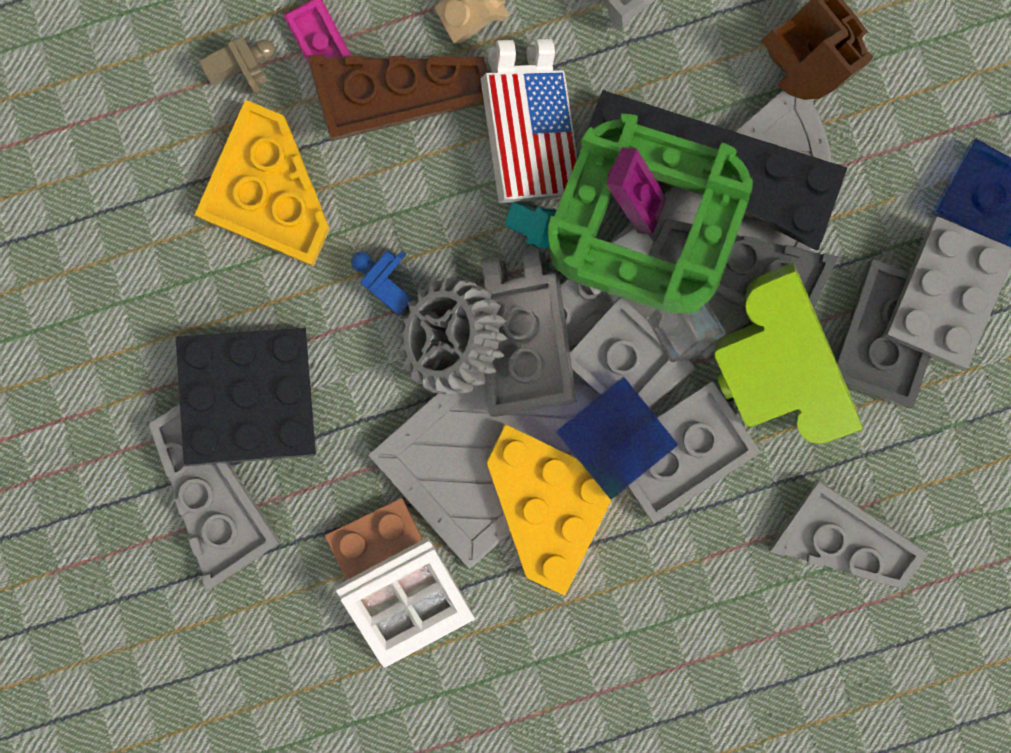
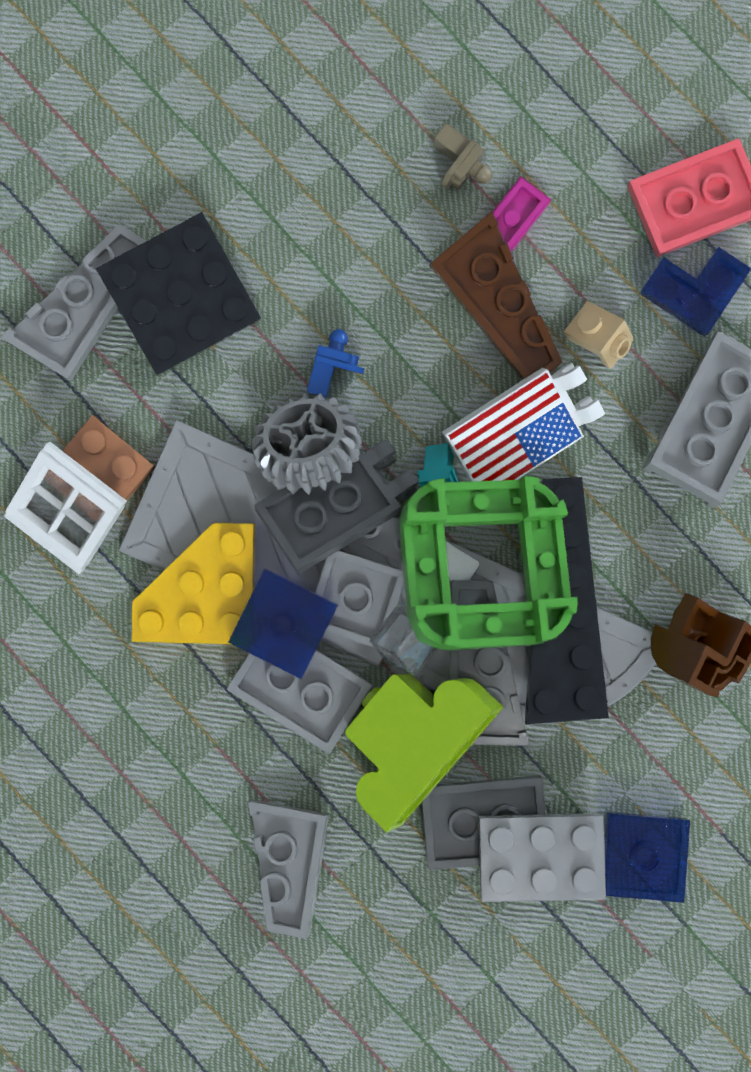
camera: 60 degrees right, 0 degrees up
(265, 188) = (365, 229): yellow plate -> none
(636, 190) = (503, 543): magenta plate -> none

